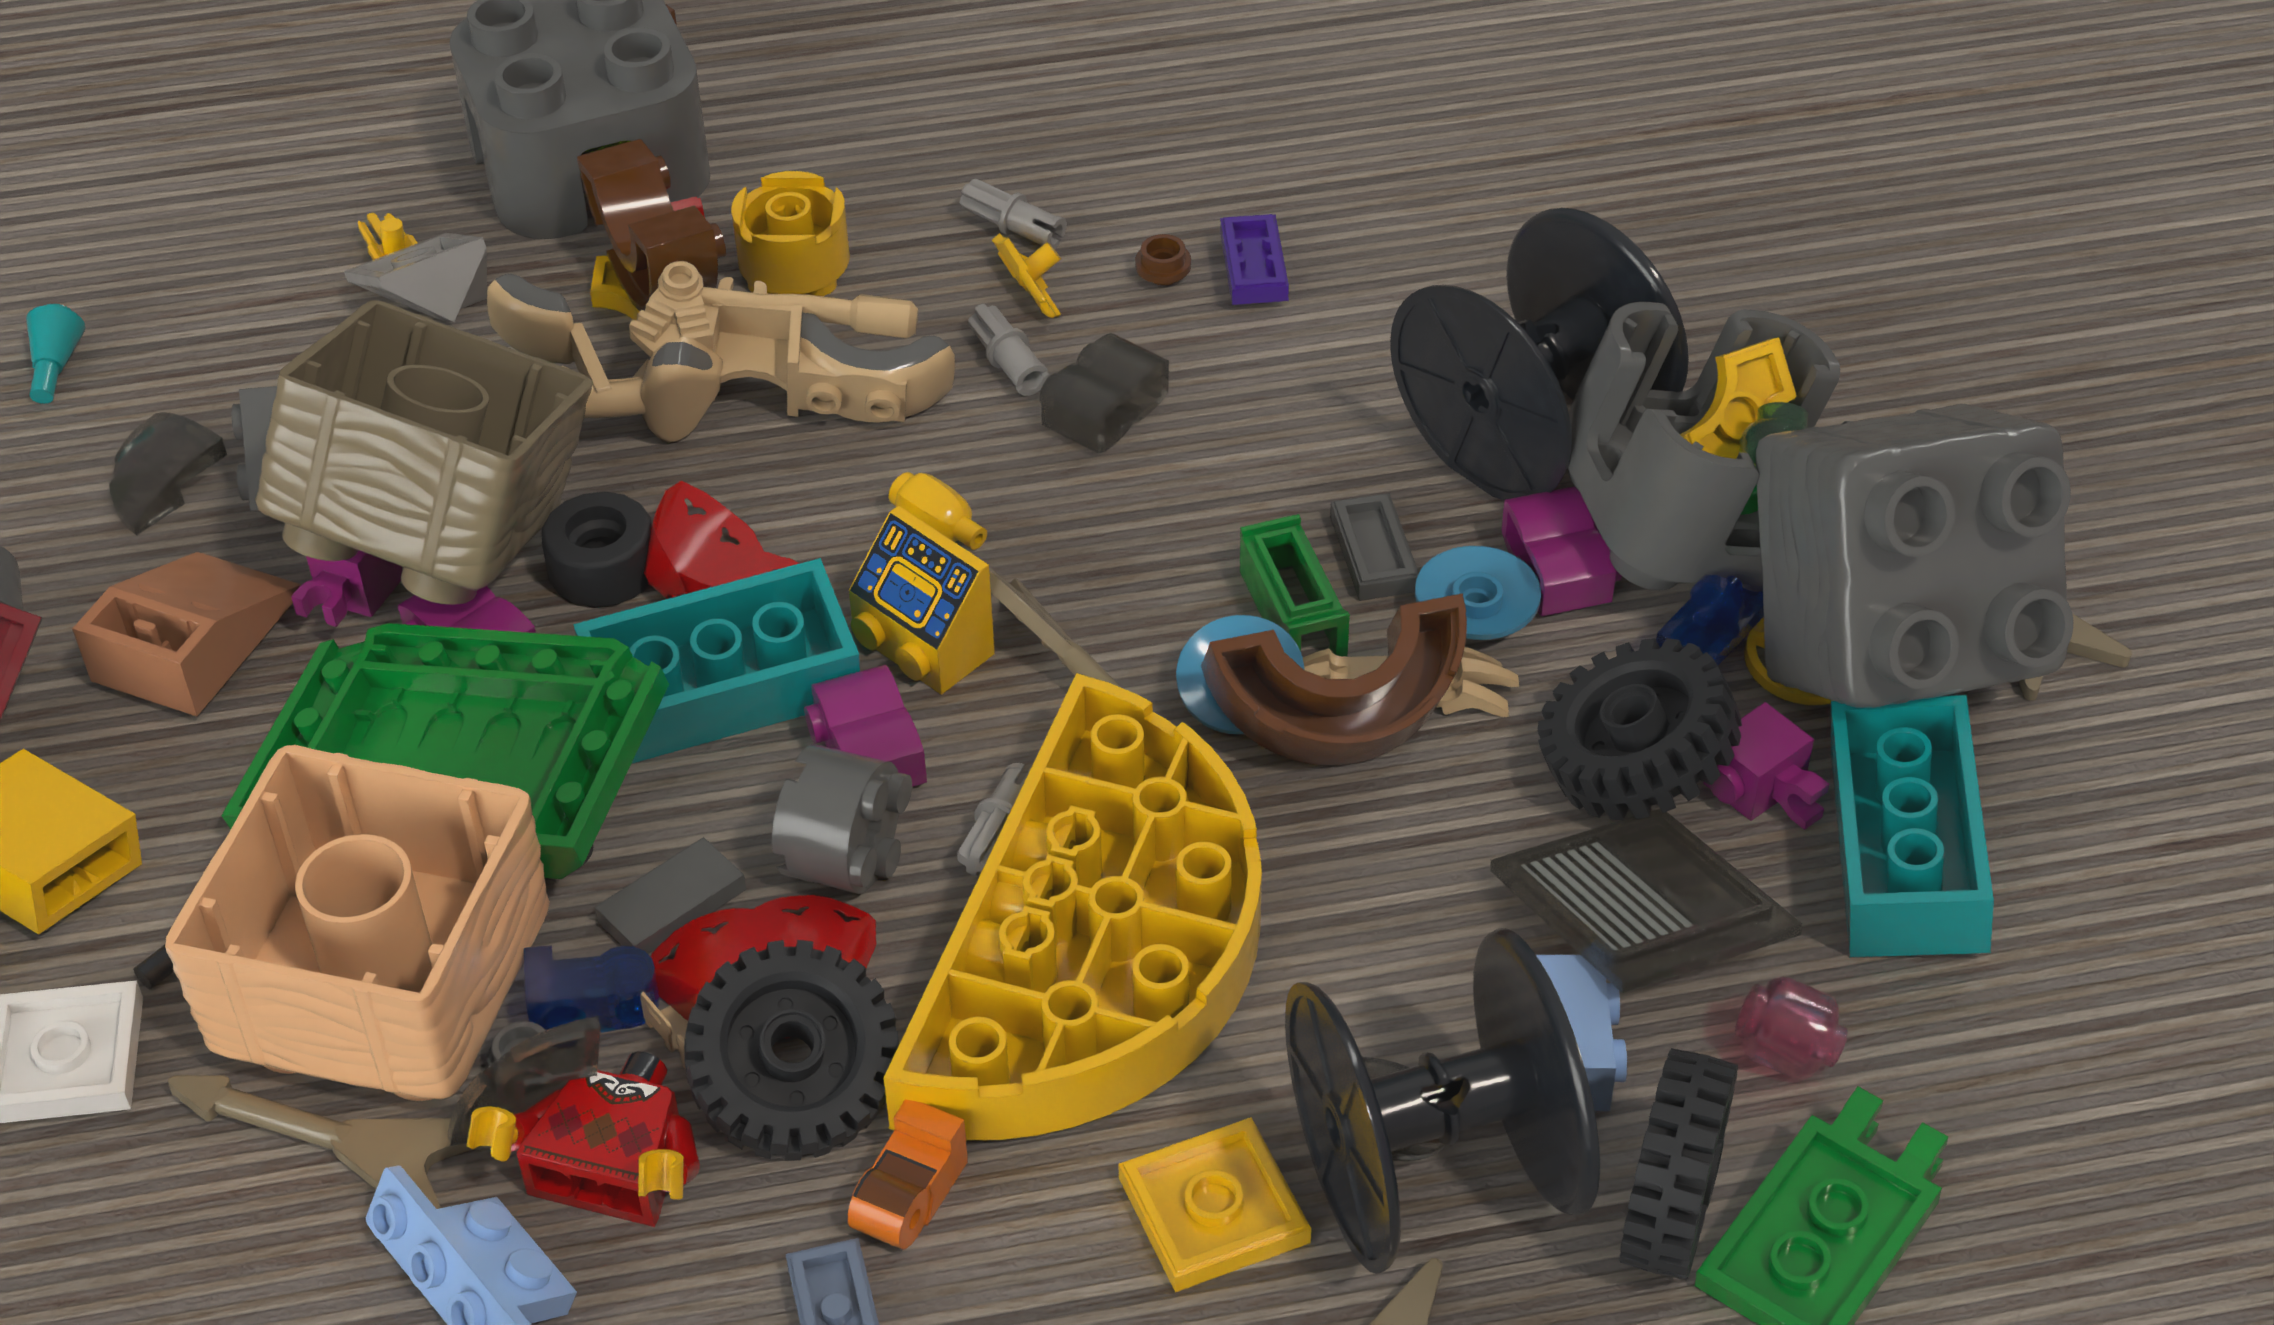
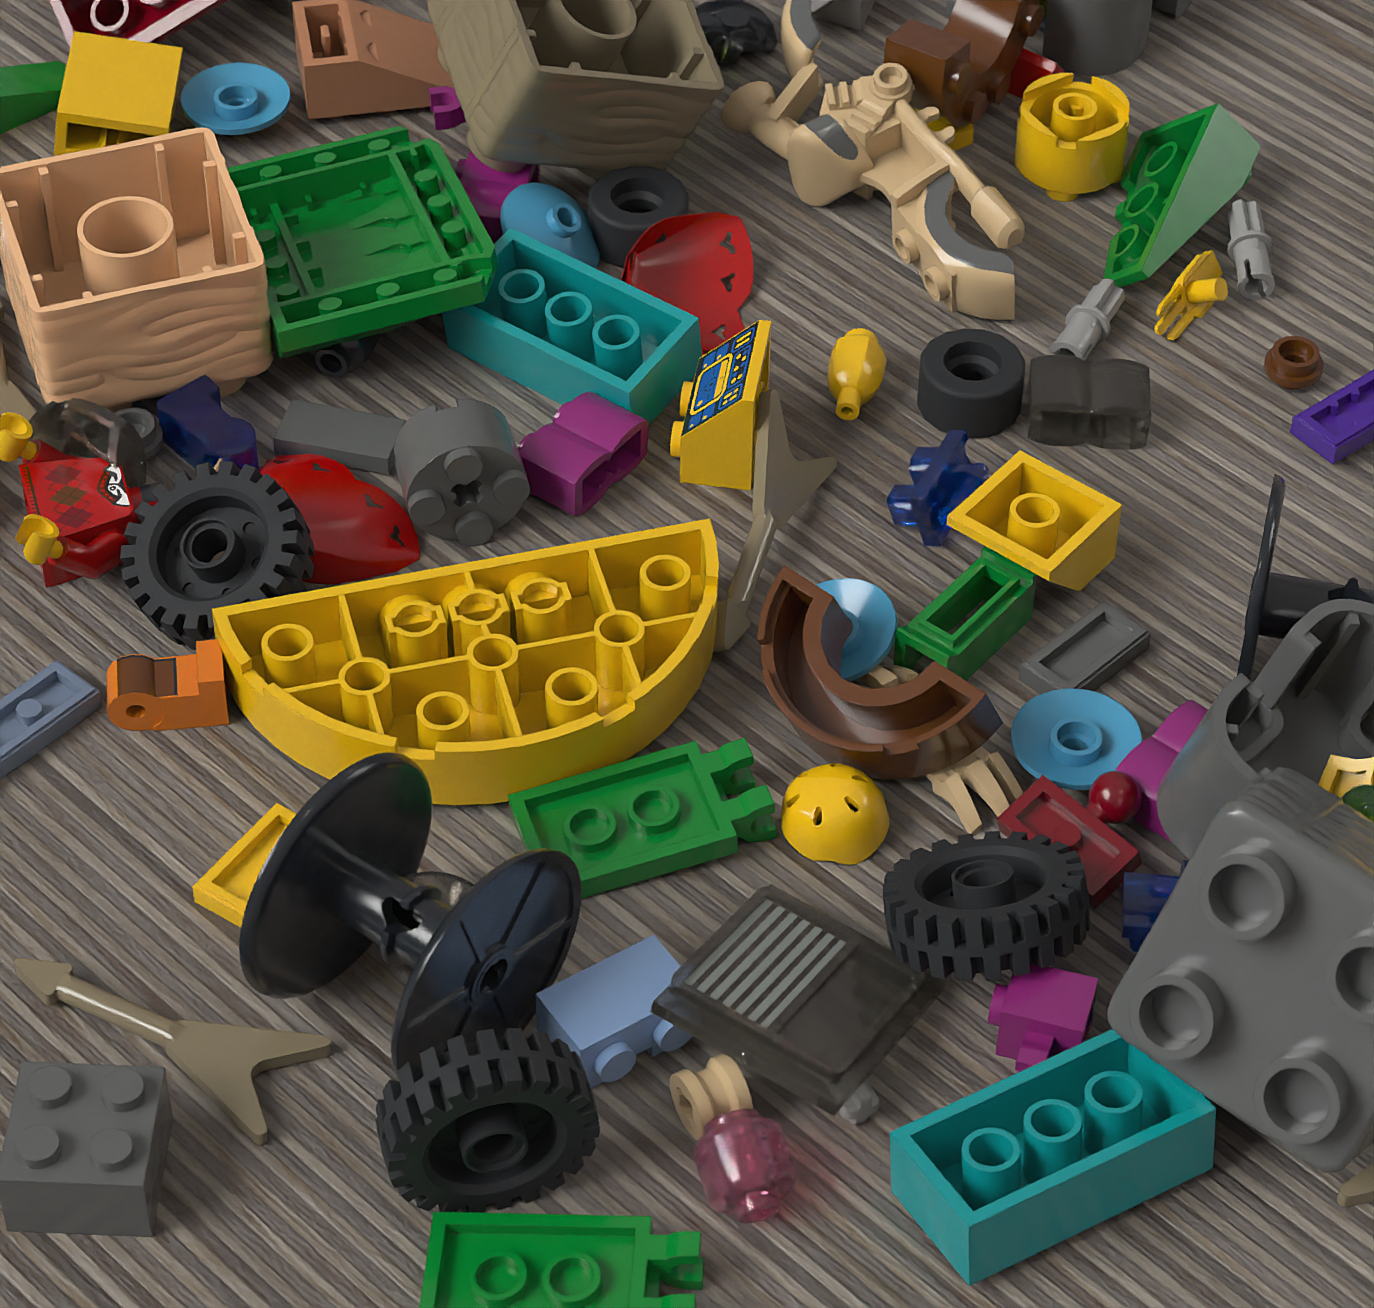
camera: 55 degrees right, 0 degrees up
(125, 749) = (235, 98): none -> dark azure dish
(553, 605) = (552, 219): none -> dark azure dish
(915, 222) = (1175, 186): none -> green wedge
(1017, 447) = (971, 382): none -> black tyre
(1135, 545) = (941, 483): none -> clear blue hips
(1239, 479) = (1042, 521): none -> yellow slope
(1341, 914) = (648, 814): none -> green tile
(1427, 770) = (828, 796): none -> yellow helmet
(1553, 650) = (1054, 814): none -> dark red plate
(1699, 1013) = (709, 1093): none -> tan wheel

